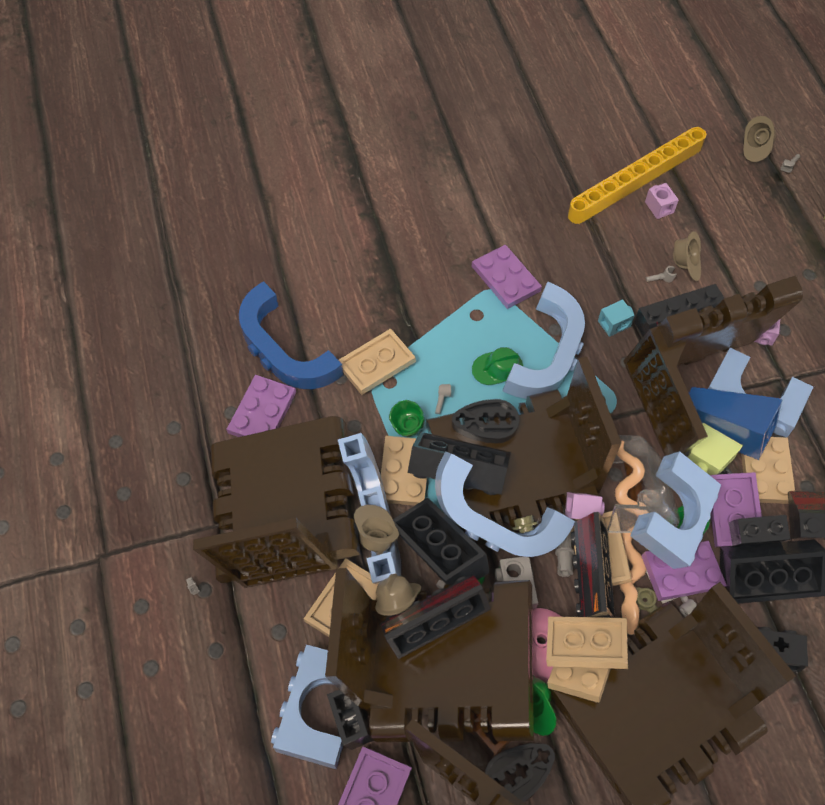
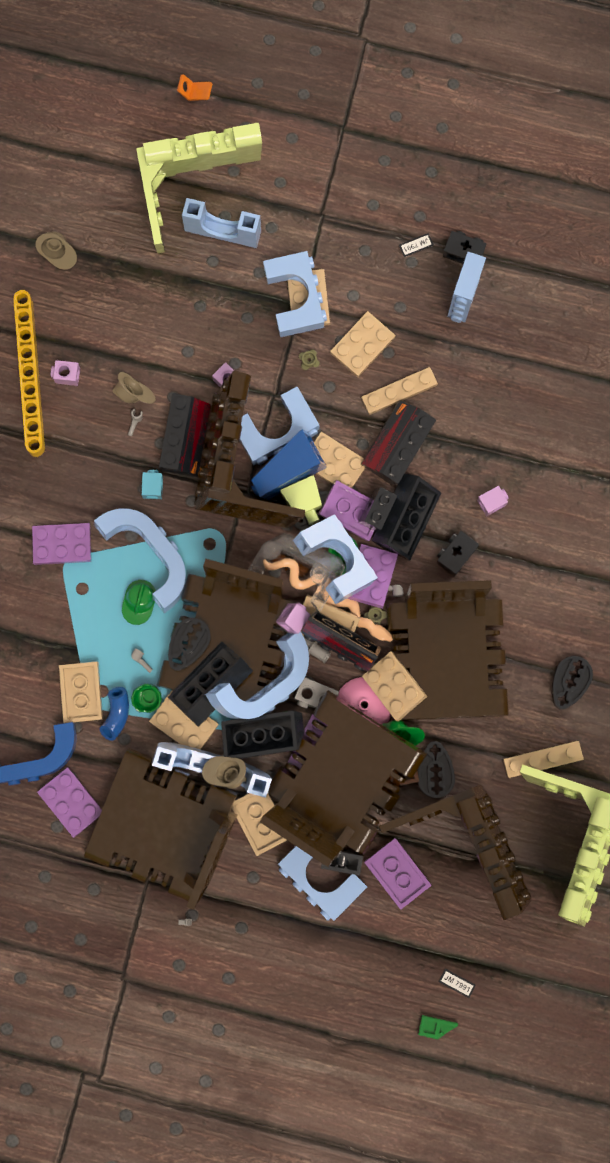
camera: 60 degrees left, 20 degrees up
(376, 403) = (117, 715): none -> blue cylinder
(395, 595) = (285, 786): dark tan piece -> none
(435, 615) = (315, 770): black slope -> none
(524, 524) = (282, 666): olive plate -> none
(587, 642) = (386, 679): tan plate -> none
(788, 165) = (93, 243): light grey hand -> none

